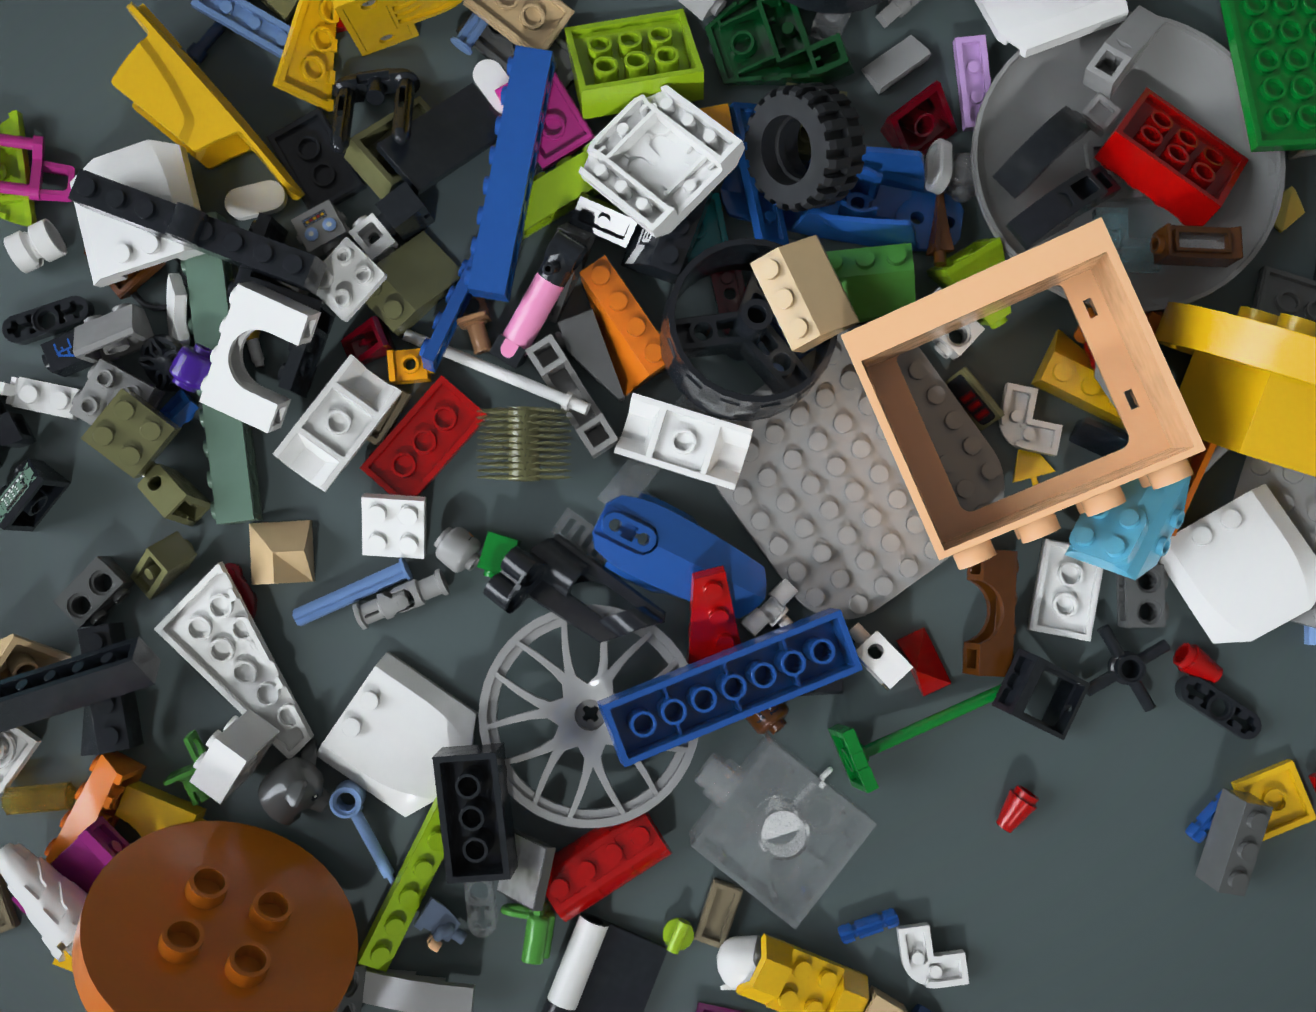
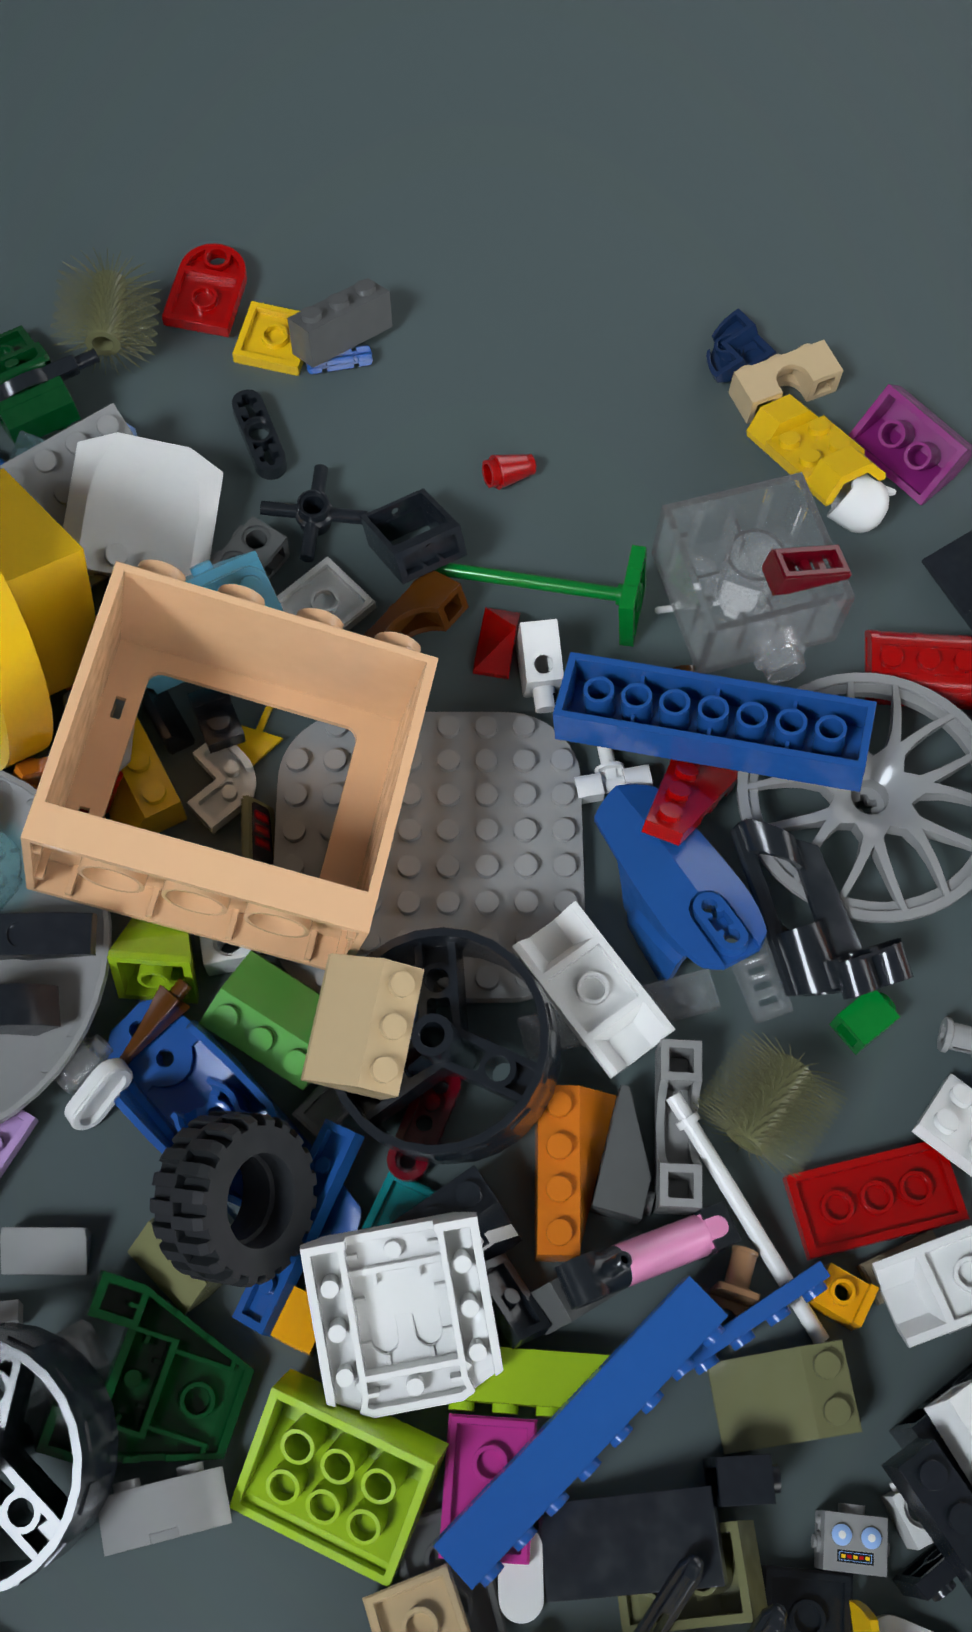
camera: 150 degrees left, 20 degrees down
(349, 279) = (859, 1435): white plate -> none
(367, 227) = (804, 1470): white brick -> none
(369, 341) = (876, 1357): dark red slope -> none
(458, 549) = (908, 1053): light grey head -> none
(678, 934) = (905, 566): lime plate -> none
(718, 913) = (864, 554): dark tan tile -> none
(758, 838) = (784, 579): none -> dark red slope
(868, 925) = (716, 465): blue axle -> none
(920, 121) = (78, 1159): dark red slope -> none
(926, 967) = (687, 405): white plate -> none
(1062, 455) = (216, 719): none -> black brick
(1196, 662) = (247, 477): red cone -> none

